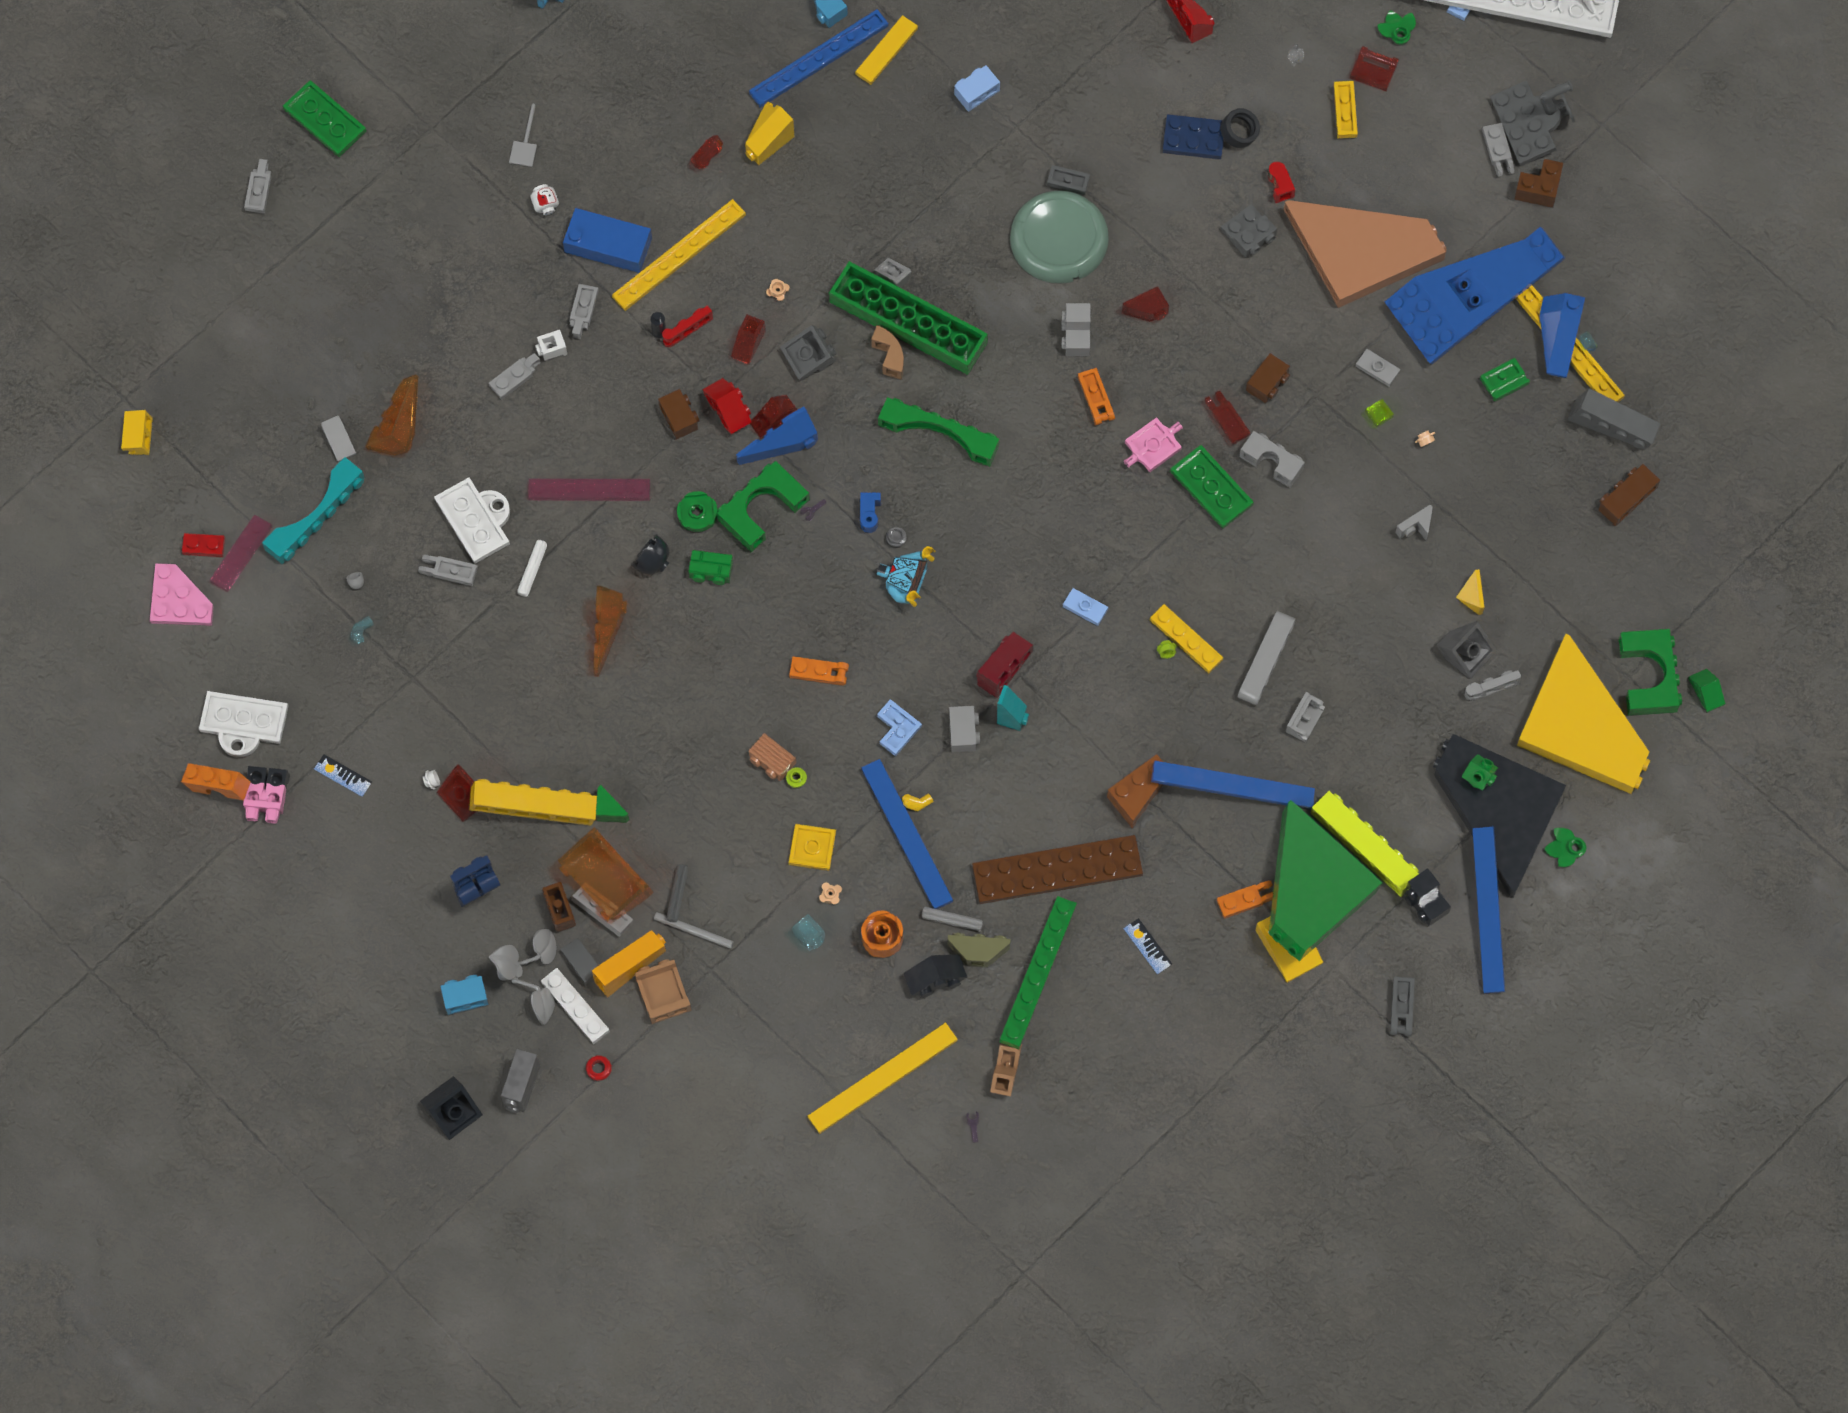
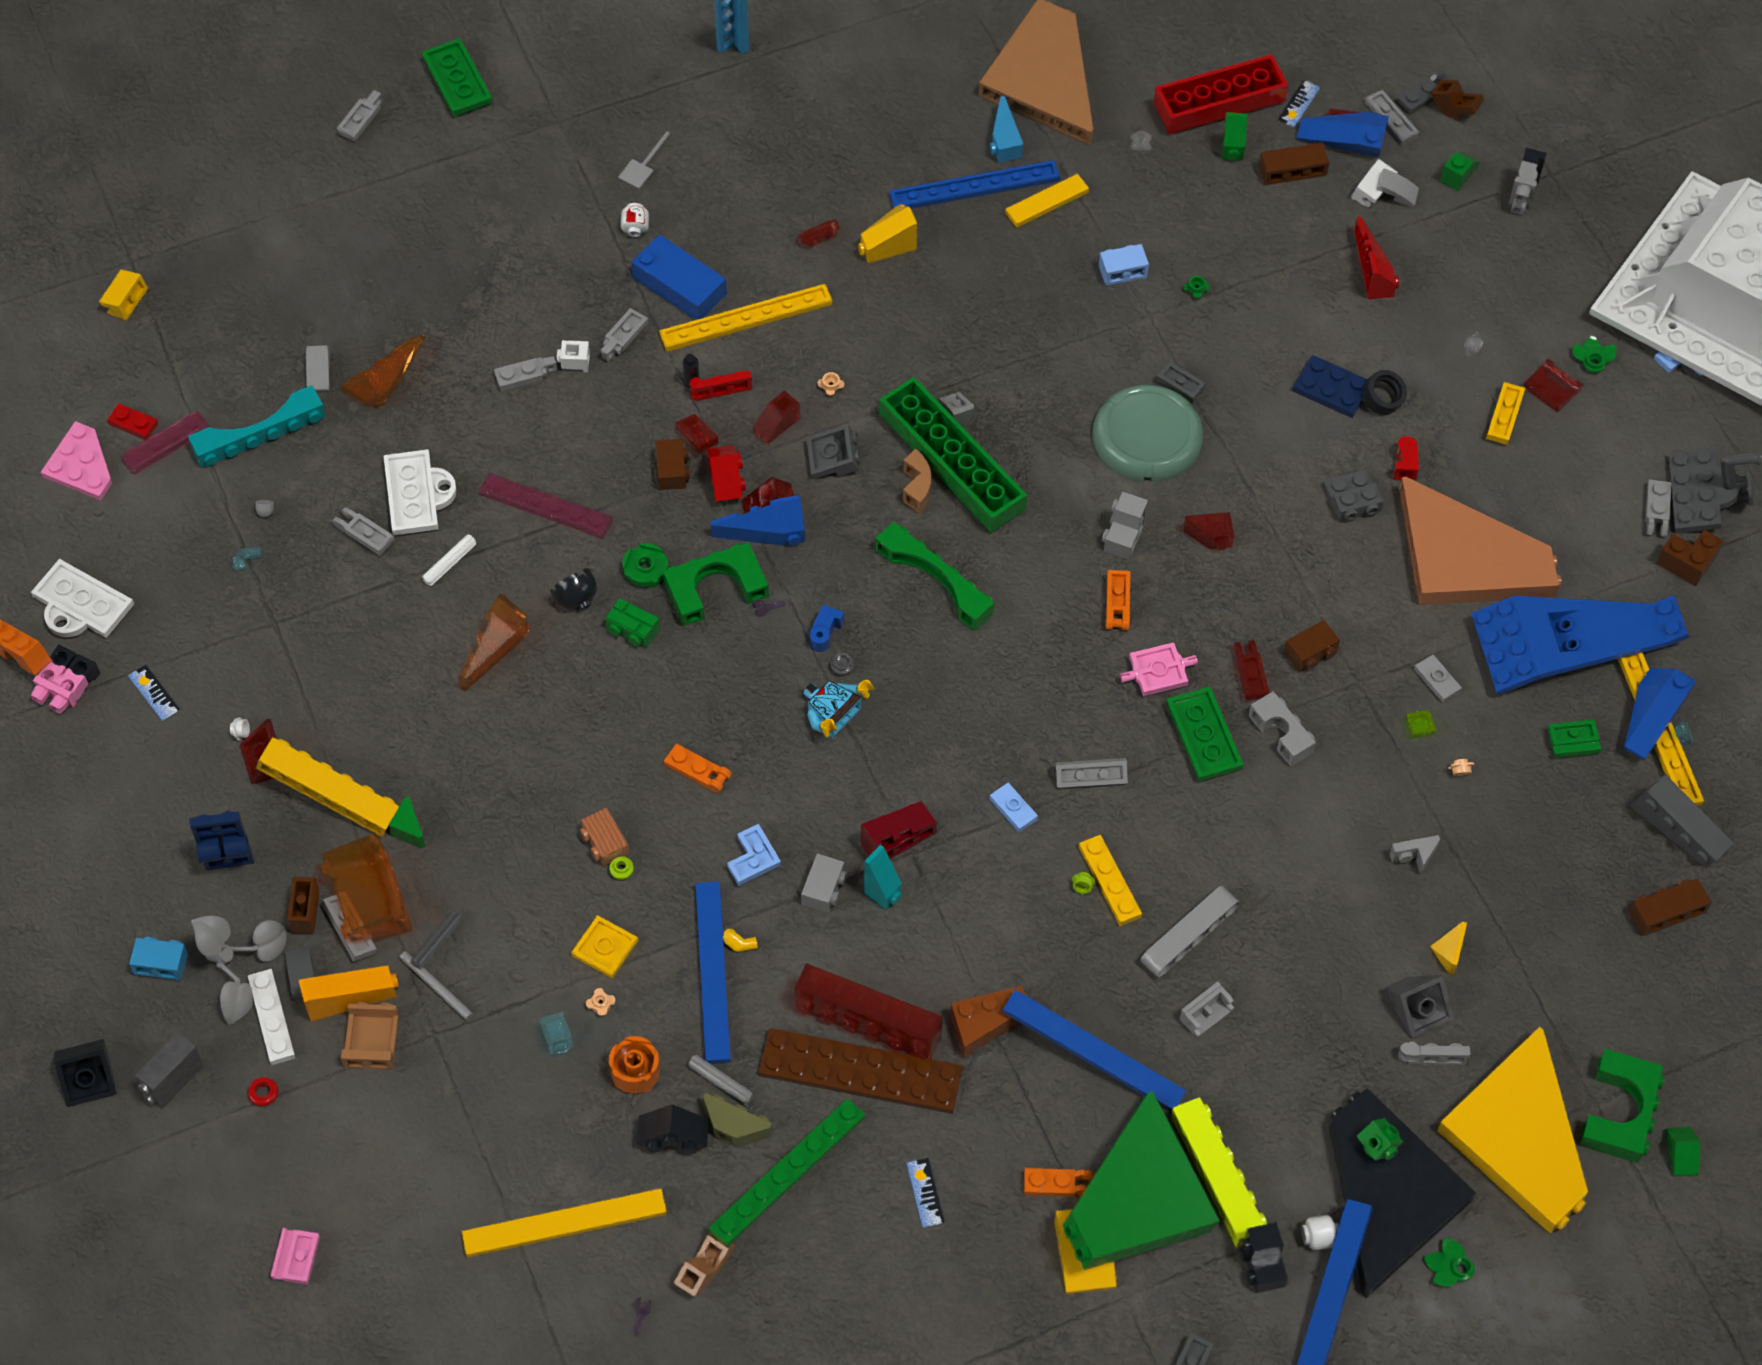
camera: 20 degrees right, 10 degrees down
(687, 377) = (697, 432): none -> clear red plate
(688, 1185) = (295, 1256): none -> bright pink plate
(1046, 80) = (1197, 281): none -> green plate
(1046, 822) = (867, 1012): none -> clear red brick
(1136, 554) = (1091, 772): none -> light grey plate
(1460, 861) = (1319, 1232): none -> white head

